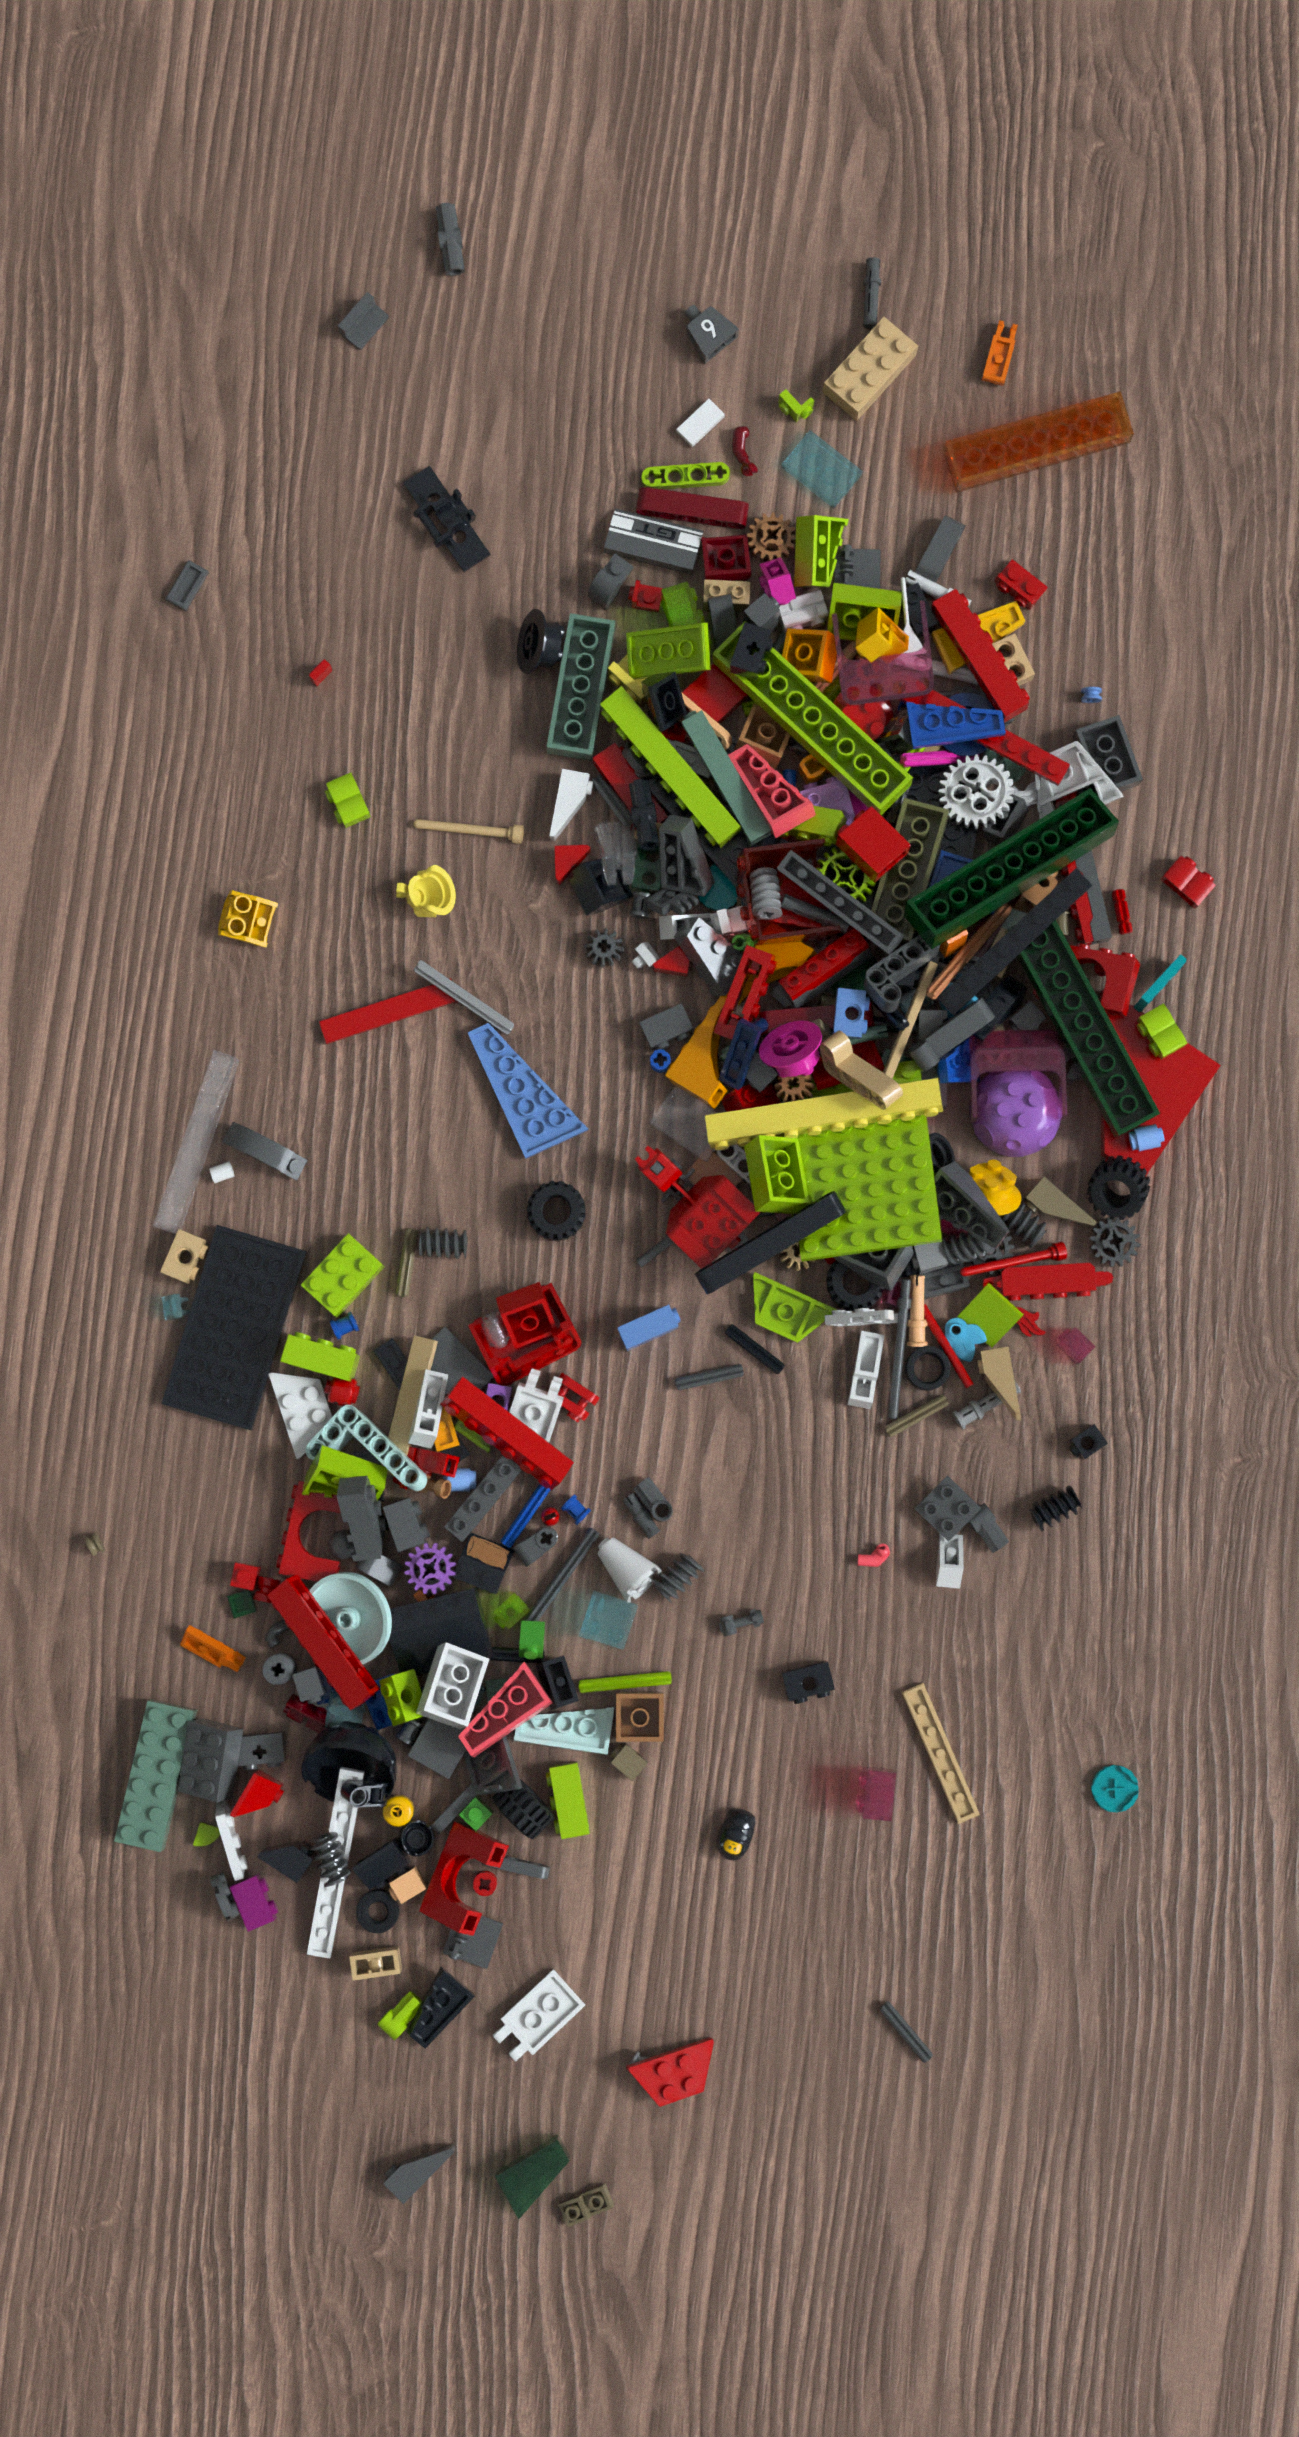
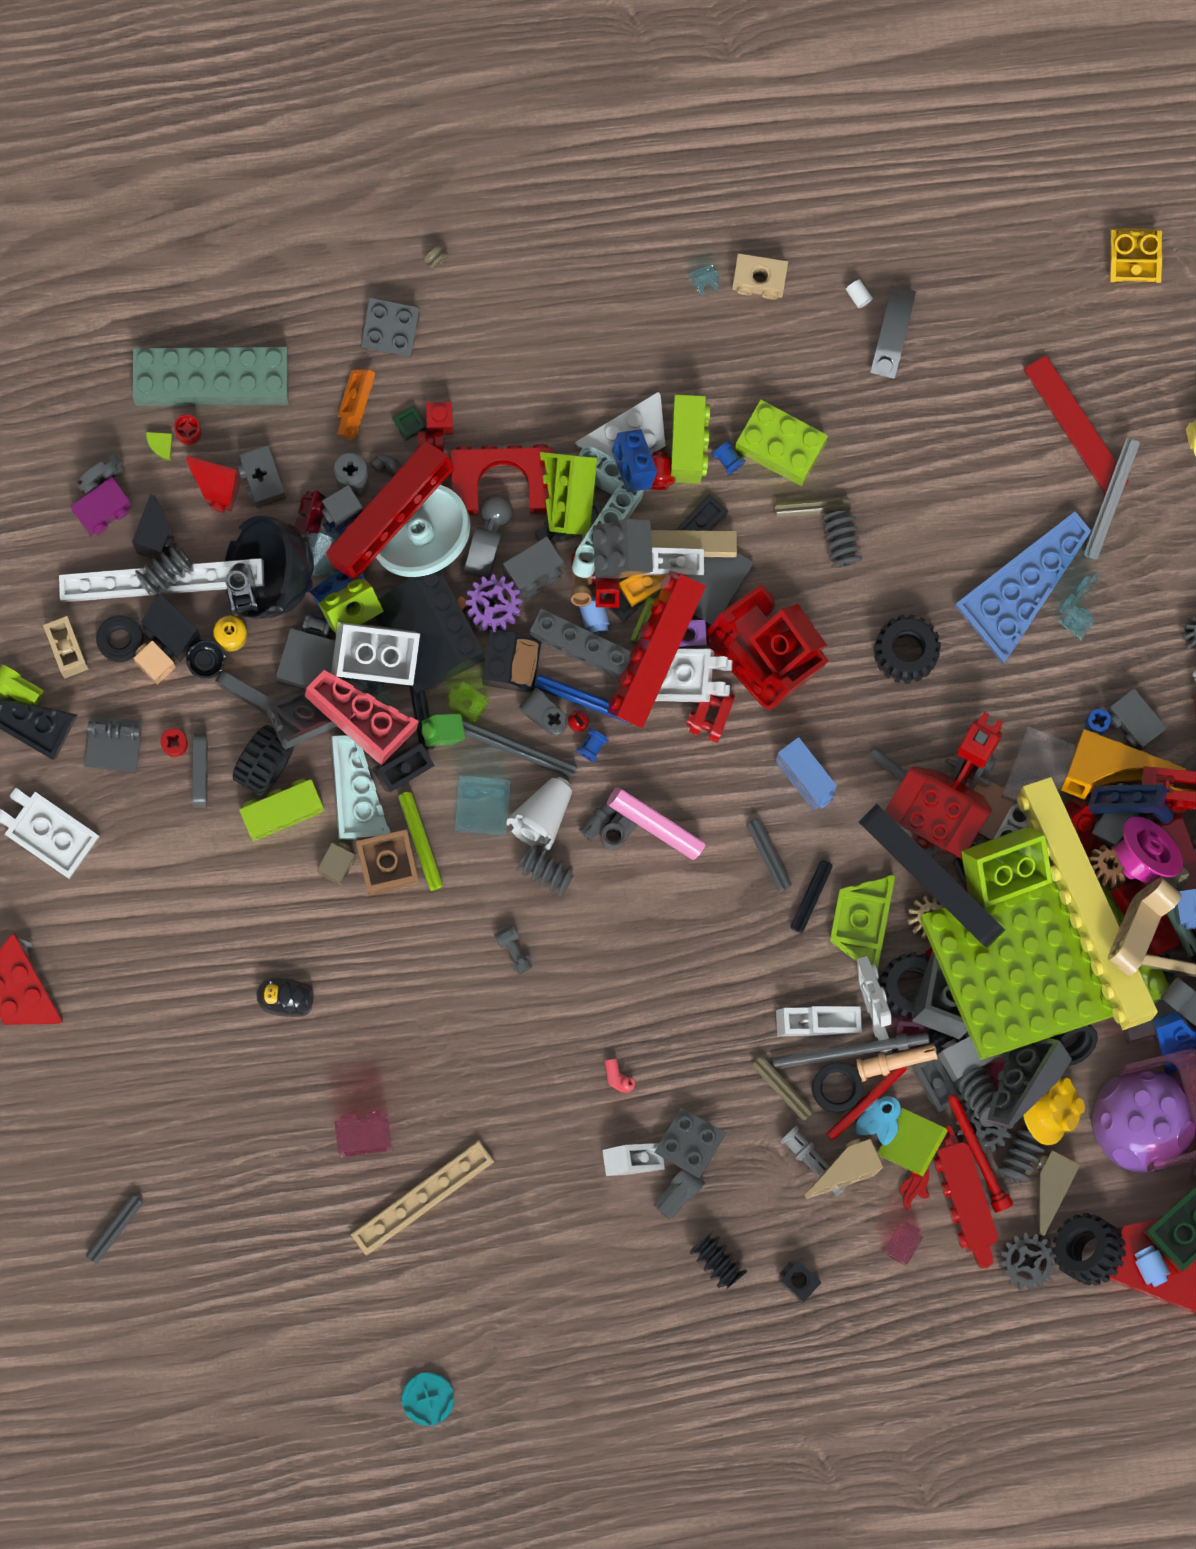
camera: 75 degrees right, 5 degrees down
(149, 1601) = (390, 327): none -> dark grey hinge
(196, 1142) = (884, 259): clear brick -> none
(197, 1810) = (187, 424): none -> red wheel
(210, 1760) = (239, 426): dark grey brick -> none
(230, 1840) = (161, 467): white wing -> none
(234, 1327) = (698, 345): black plate -> none
(330, 1411) = (634, 460): none -> blue brick
(364, 1515) = (532, 519): dark grey wedge -> none
(414, 1443) = (622, 548): none -> dark grey brick
(441, 1896) = (149, 699): red arch -> none
(476, 1813) = (246, 715): bright green brick -> none
(495, 1330) = (762, 612): clear brick -> none
(567, 1056) = (1075, 619): none -> clear light blue bracket
(660, 1471) = (655, 823): none -> bright pink brick
(793, 1682) = (465, 1019): black brick -> none

